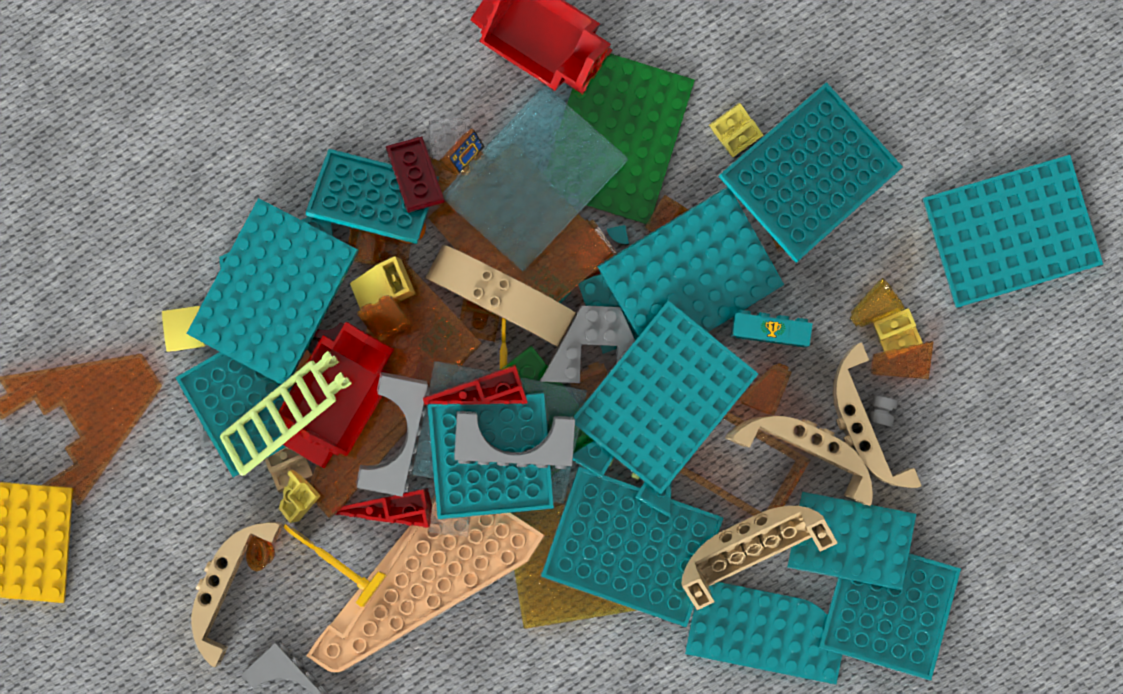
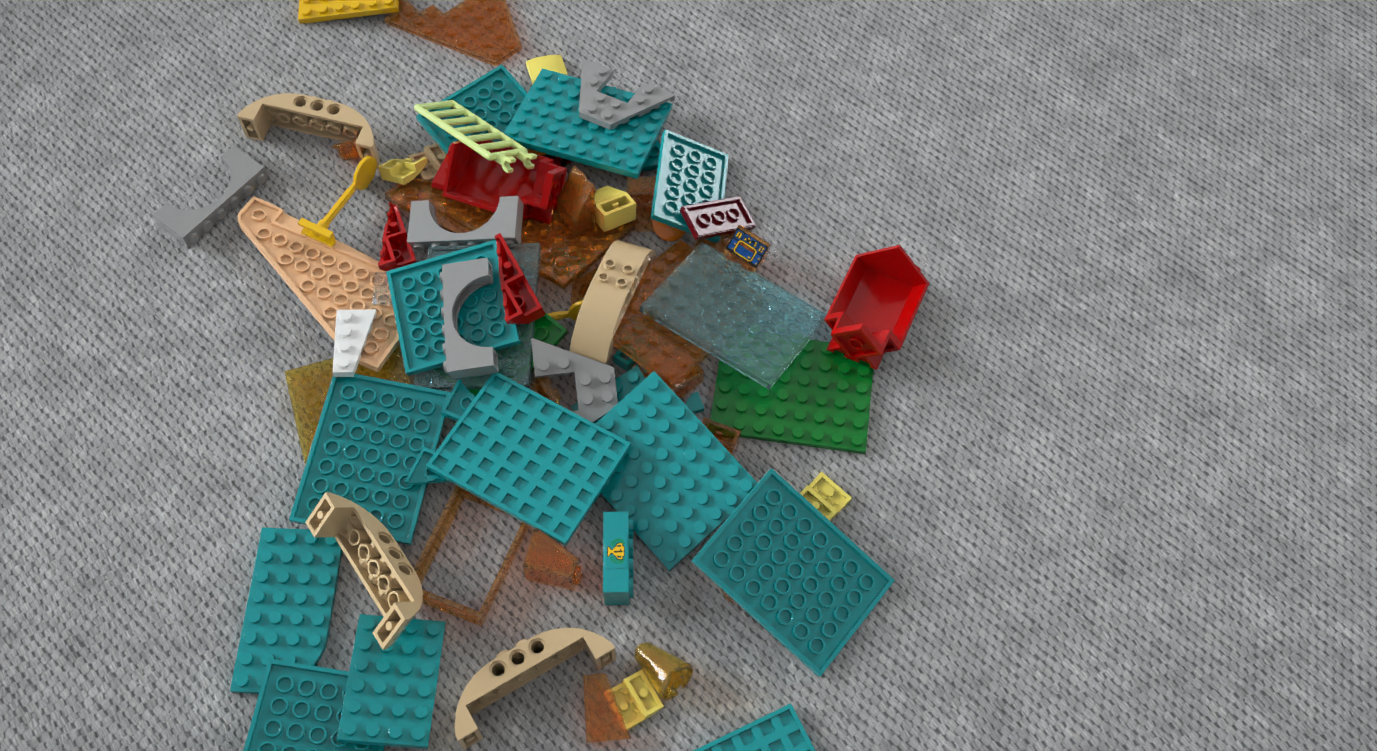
camera: 75 degrees right, 25 degrees down
(263, 273) = (608, 110): none -> light grey wing
(503, 558) = (350, 339): none -> white wing
(839, 455) = (508, 578): tan slope -> none
(883, 411) = (543, 694): light grey wheel -> none

